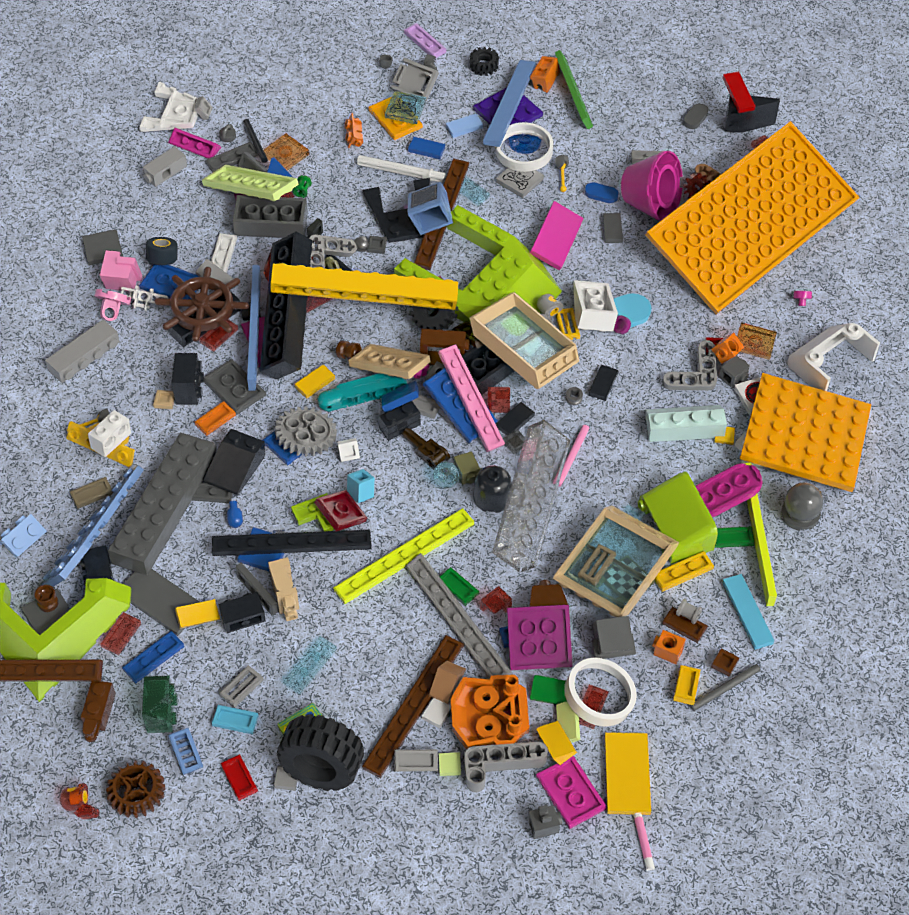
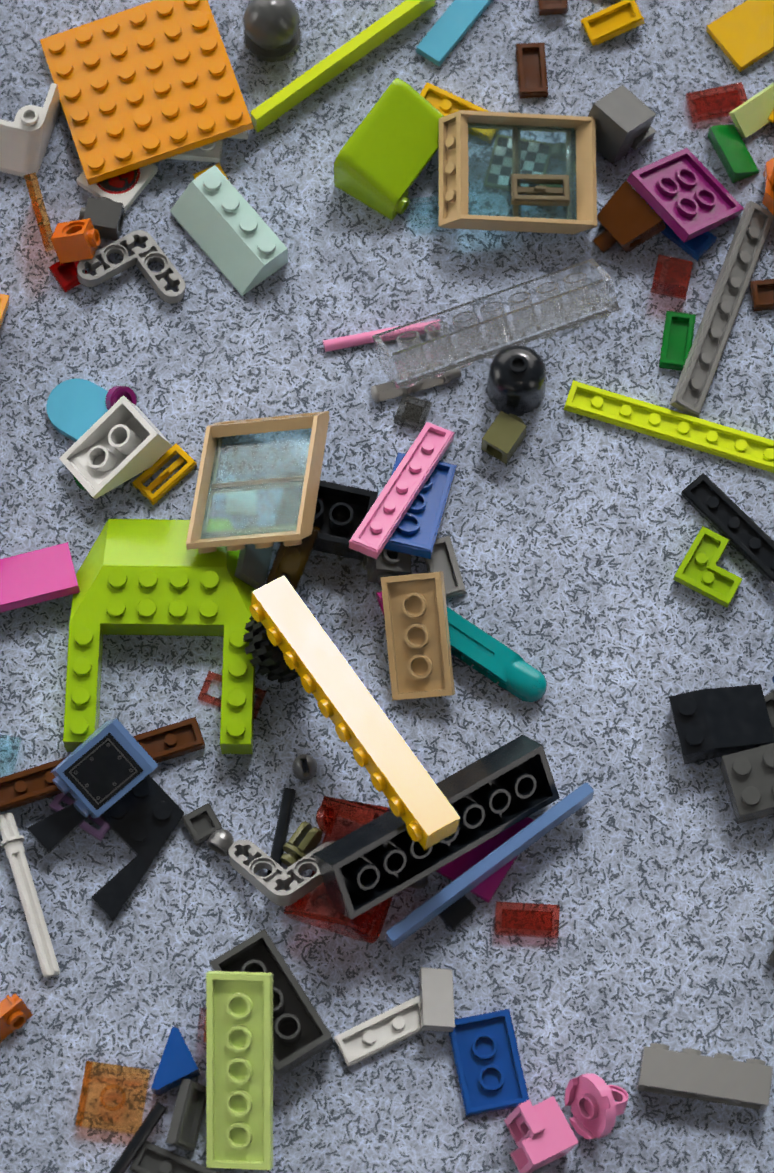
camera: 125 degrees left, 15 degrees up
(149, 297) = (538, 1060): white piece -> none
(161, 250) = (437, 1113): black wheel -> none
(164, 399) = (688, 904): tan tile -> none
(186, 379) = (648, 880): black brick -> none
(204, 310) = (517, 953): reddish brown brick -> none
(215, 418) = (666, 812): orange tile -> none
(231, 386) = (598, 831): dark grey tile -> none
(285, 455) = (643, 691): blue tile -> none
(303, 187) = (170, 1012): green bush -> none
(305, 431) = (576, 665): light grey gear -> none
(314, 381) = (504, 727): yellow tile -> none
(315, 228) = (244, 925): pearl dark grey tile -> none
(340, 510) = (687, 538): dark red tile -> none
(347, 350) = (430, 713): reddish brown wheel -> none
(348, 449) = (588, 599): white tile -> none
(360, 485) = (635, 537): medium azure brick -> none
(398, 419) = (494, 566): black brick -> none
(400, 396) = (468, 581): blue tile -> none
(428, 451) = (510, 505): dark brown connector -> none
(442, 339) = (342, 583): reddish brown window -> none
(446, 475) = (535, 452): clear light blue piece -> none
(499, 399) = (365, 472): clear red panel -> none
(515, 419) = (377, 436): black tile -> none
(549, 306) = (163, 503): light grey piece -> none
(573, 400) = (279, 381): flat silver bush -> none
(585, 712) = (712, 126): white piece -> none
(603, 382) = (234, 368): black tile -> none
(668, 654) = (580, 53): orange brick -> none
(689, 611) = (520, 63): light grey bush -> none
(730, 488) = (307, 117): dark pink tile -> none
(734, 537) = (362, 83): green tile -> none

